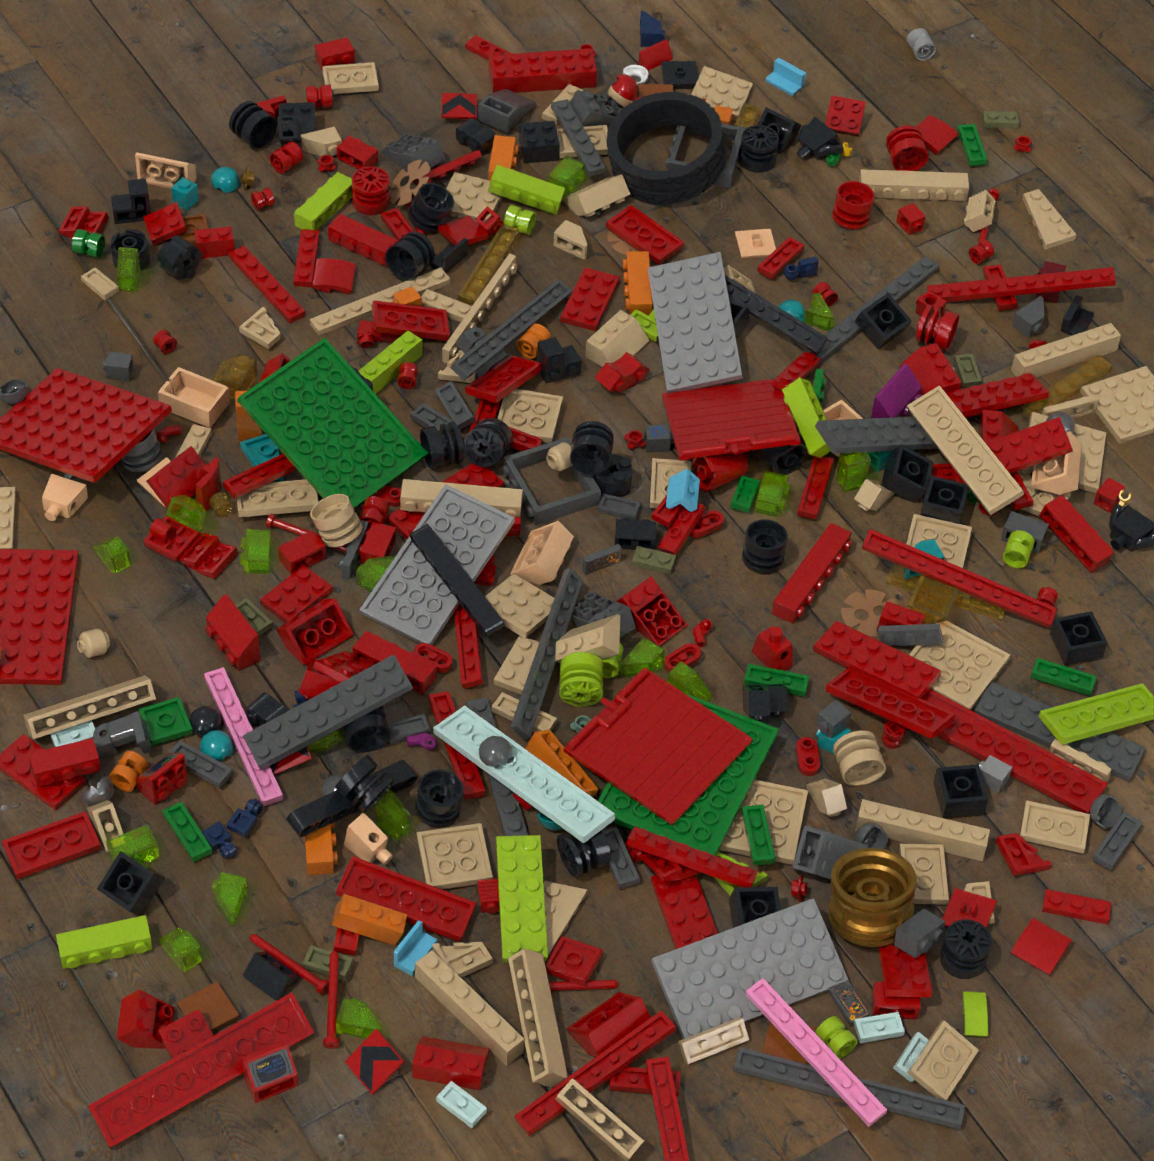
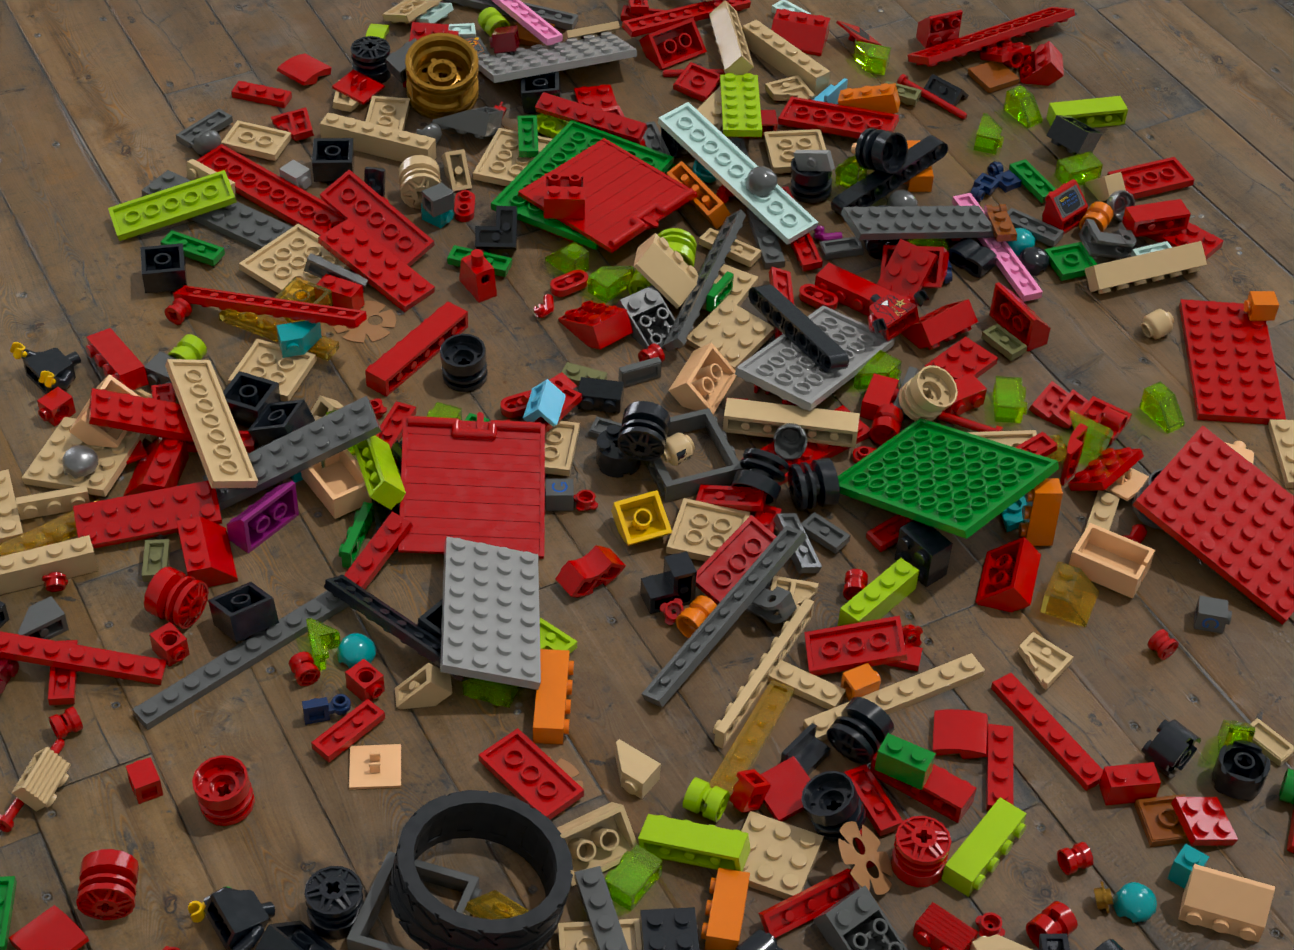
camera: 175 degrees left, 5 degrees down
(131, 206) = (1257, 847): black brick -> none
(236, 745) = (1000, 222): none -> dark orange plate
(331, 1041) = (895, 50): red bar -> none
(362, 610) = (894, 313): none -> red torso
(379, 226) = (904, 761): none -> green brick
(438, 781) = (814, 160): none -> light grey plate
(462, 477) = (790, 441): none -> dark grey hair
(532, 635) = (719, 291): none -> green plate
(584, 410) = (641, 518): none -> yellow slope
(590, 299) = (617, 688): red plate -> none
(593, 577) = (651, 352): none -> red wheel
(616, 338) = (596, 616): tan slope -> none
(650, 149) = (494, 906): none -> clear yellow tile
(701, 707) = (564, 196): none -> red slope
(778, 287) = (365, 681): none -> red brick
(815, 997) = (505, 39): none -> dark red brick
(834, 514) = (378, 407): none -> red plate
(906, 754) = (375, 179): none -> black hips
(916, 184) = (143, 839): tan brick -> none

